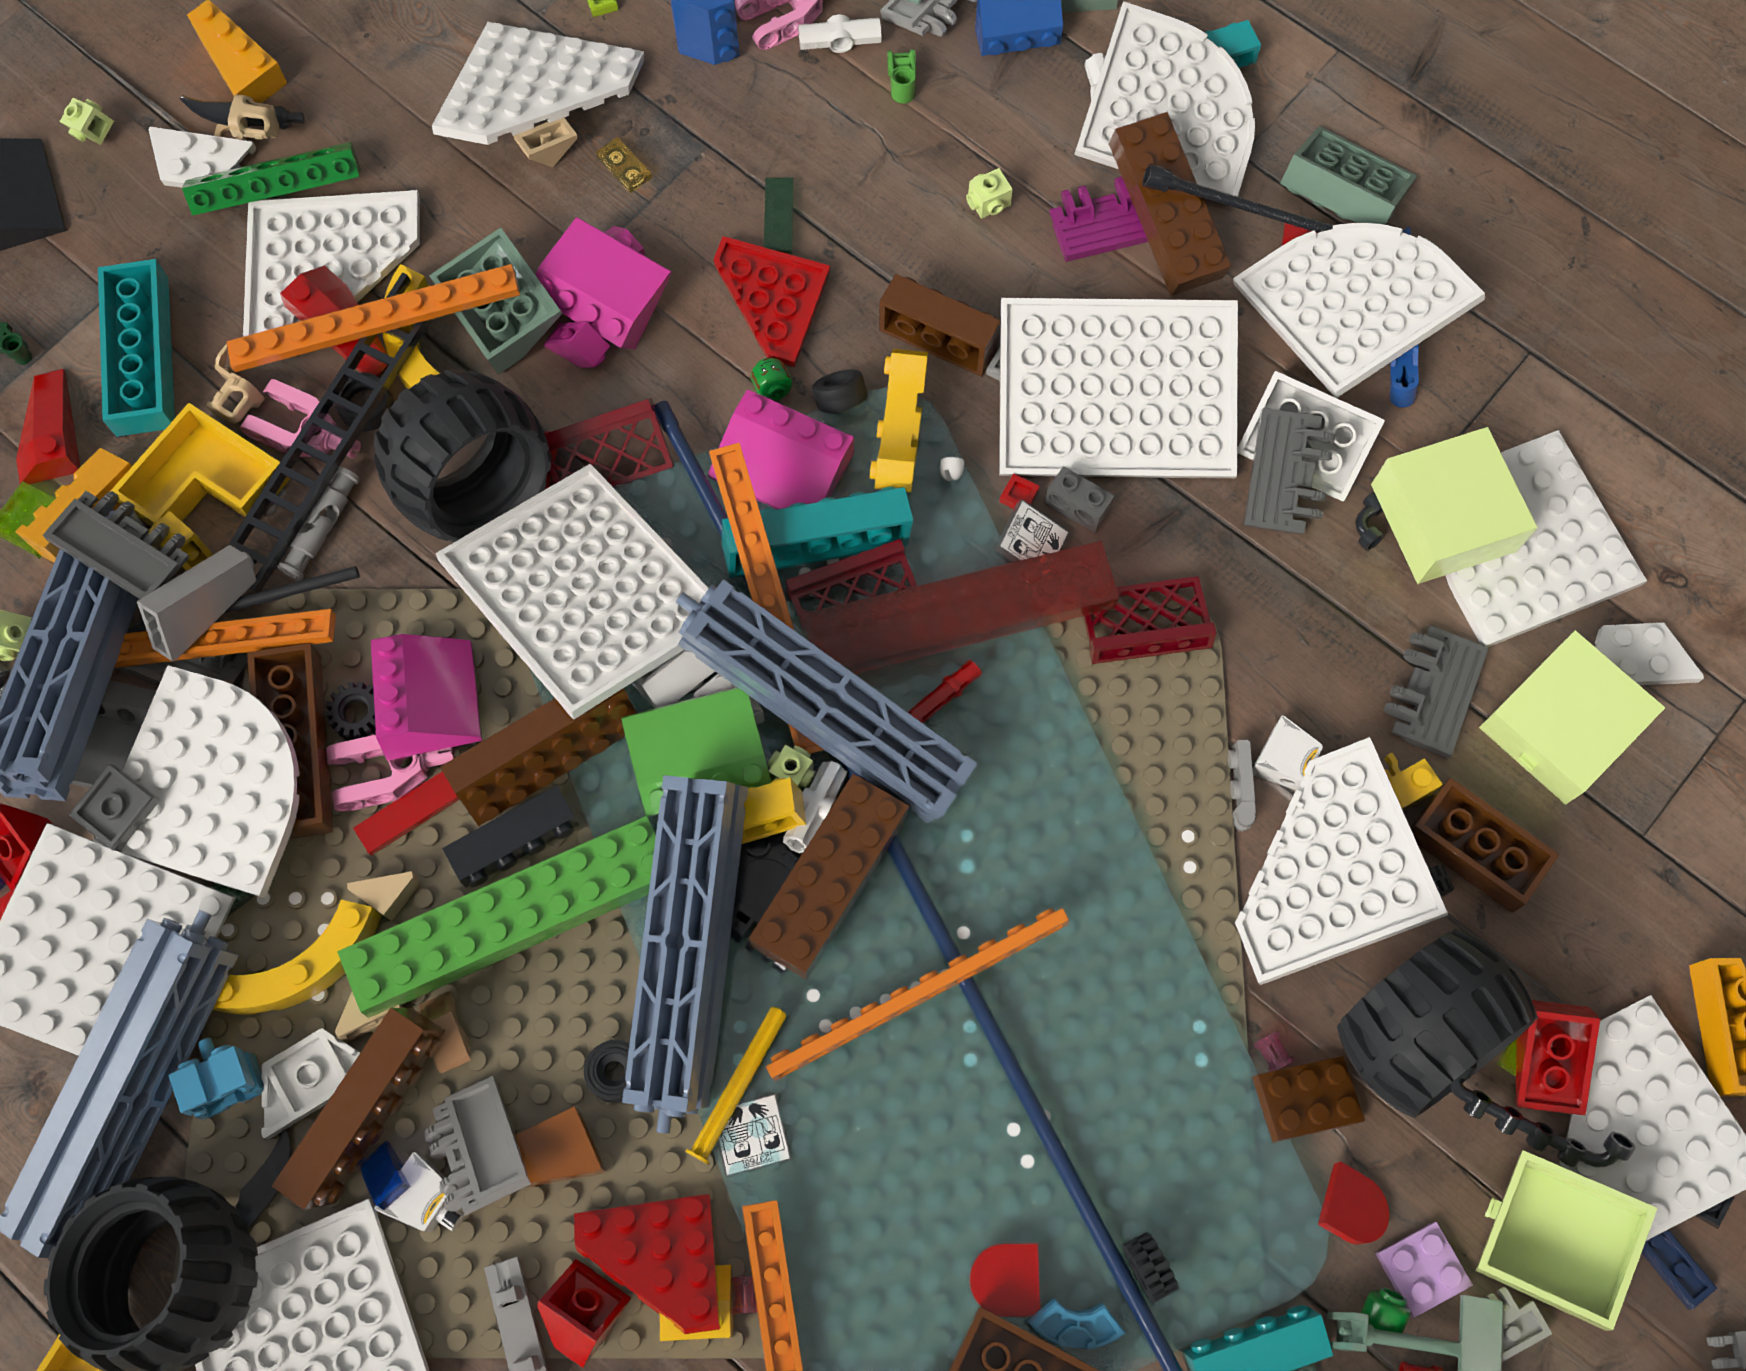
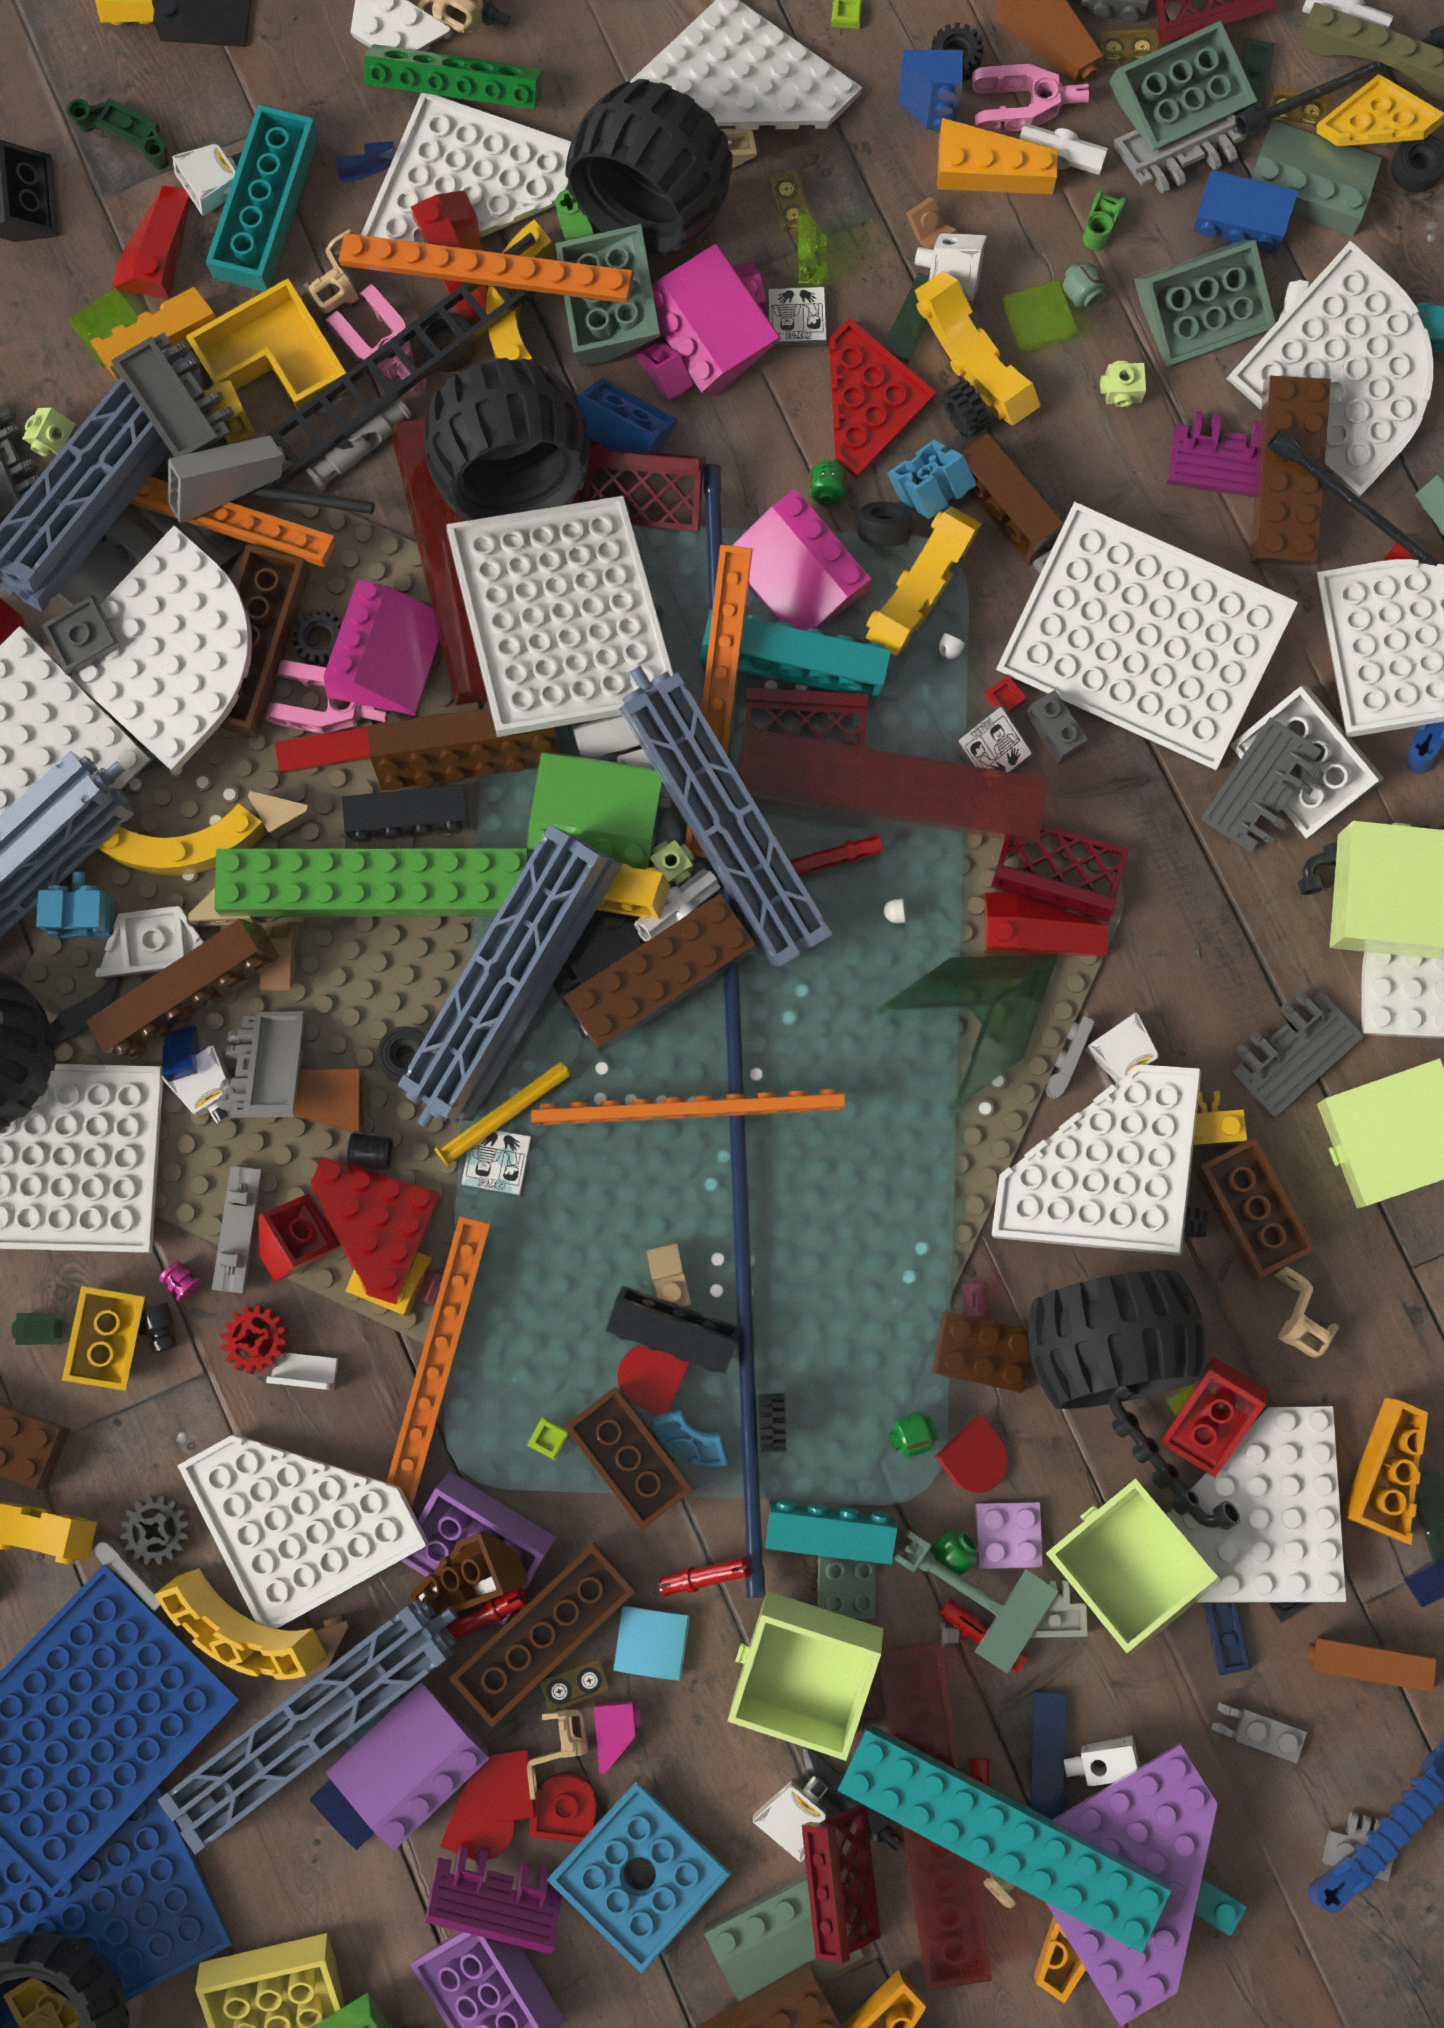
camera: 30 degrees right, 10 degrees up
(72, 349) = (206, 175): none -> white torso
(228, 277) = (376, 159): none -> clear blue slope
(417, 560) = (429, 521): none -> clear red brick
(432, 248) = (572, 222): none -> bright green piece
(492, 135) = (649, 162): none -> black tyre
(562, 401) = (623, 420): none -> blue slope
(620, 1185) = (369, 1151): none -> black piece
(661, 195) = (809, 251): none -> clear neon green slope
(678, 251) = (798, 315): none -> tile
(768, 145) = (928, 223): none -> medium nougat slope
(786, 65) = (992, 162): none -> light orange wedge
(794, 154) = (958, 256): none -> white torso
(846, 221) = (972, 351): none -> yellow brick
(863, 267) = (965, 409): none -> black tyre
(863, 335) = (932, 479): none -> dark azure brick
(888, 170) = (1039, 316): none -> clear neon green tile
(914, 130) = (1084, 285): none -> sand green head
(976, 1170) = (668, 1275): none -> tan slope
(1008, 1220) = (673, 1329): none -> black brick
(1019, 722) = (896, 911): none -> white hinge
(1024, 103) = (1206, 301): none -> sand green slope
(1149, 683) = (1034, 928): none -> red wedge
(1156, 751) = (1002, 995): none -> clear green windscreen
(1288, 1212) = (913, 1435): none -> green head
(1579, 933) = (1299, 1325): none -> tan piece

